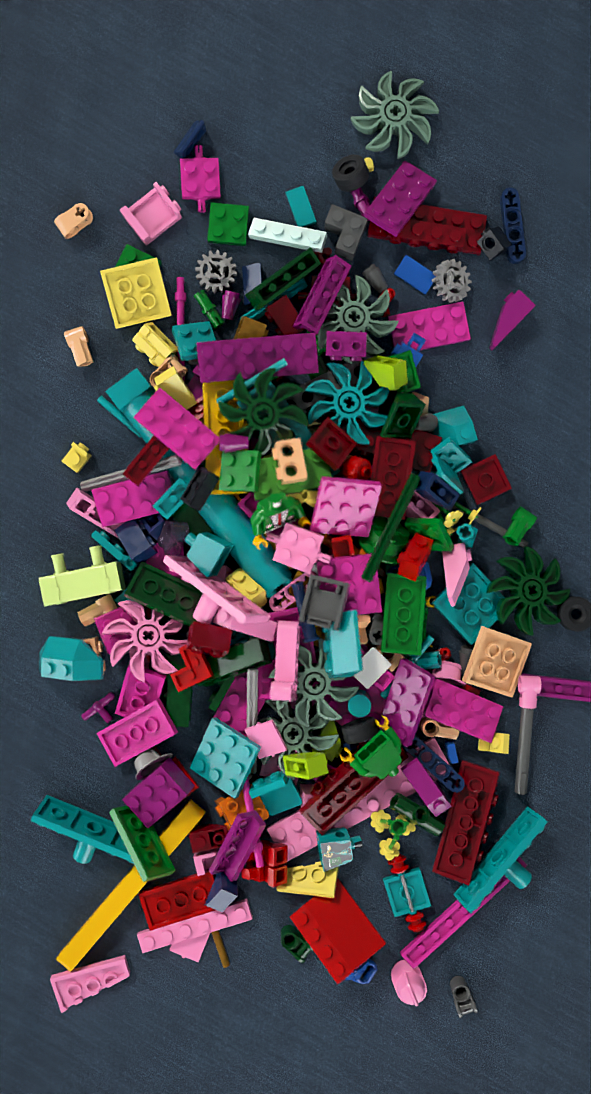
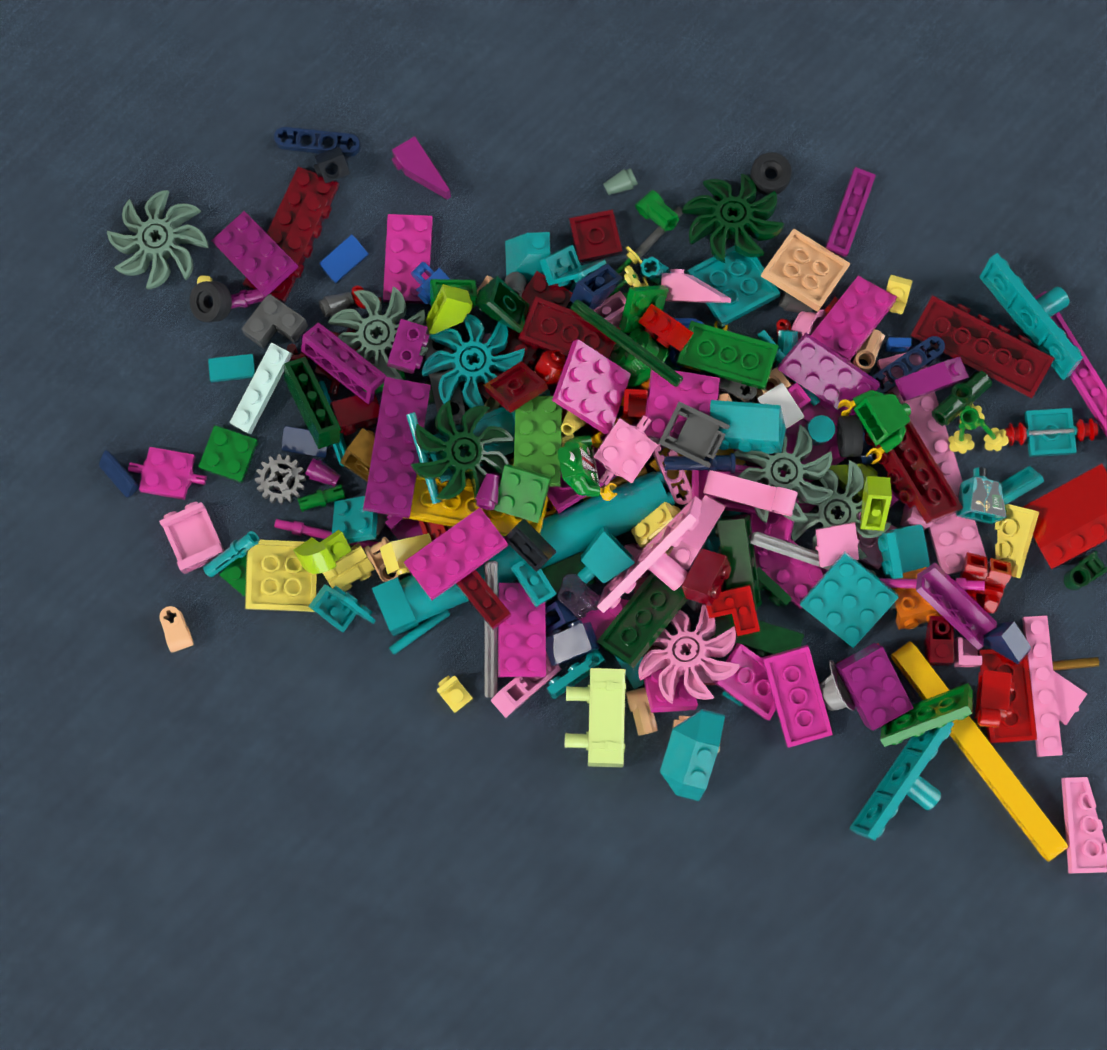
camera: 75 degrees left, 10 degrees down
(78, 342) = (319, 658): light nougat piece -> none
(98, 707) = (758, 738): magenta piece -> none
(118, 346) = (339, 607): none -> teal bracket
(145, 250) = (237, 549): none -> teal pin
(155, 320) = (321, 556): none -> lime brick
(171, 891) = (993, 698): none -> red hinge
(294, 461) = (526, 427): light nougat brick -> none
(357, 876) = (1020, 484): none -> teal tile
(451, 280) = (360, 220): light grey gear -> none
(528, 688) = (843, 242): dark grey piece -> none
(537, 489) = (620, 182): none -> sand green cone

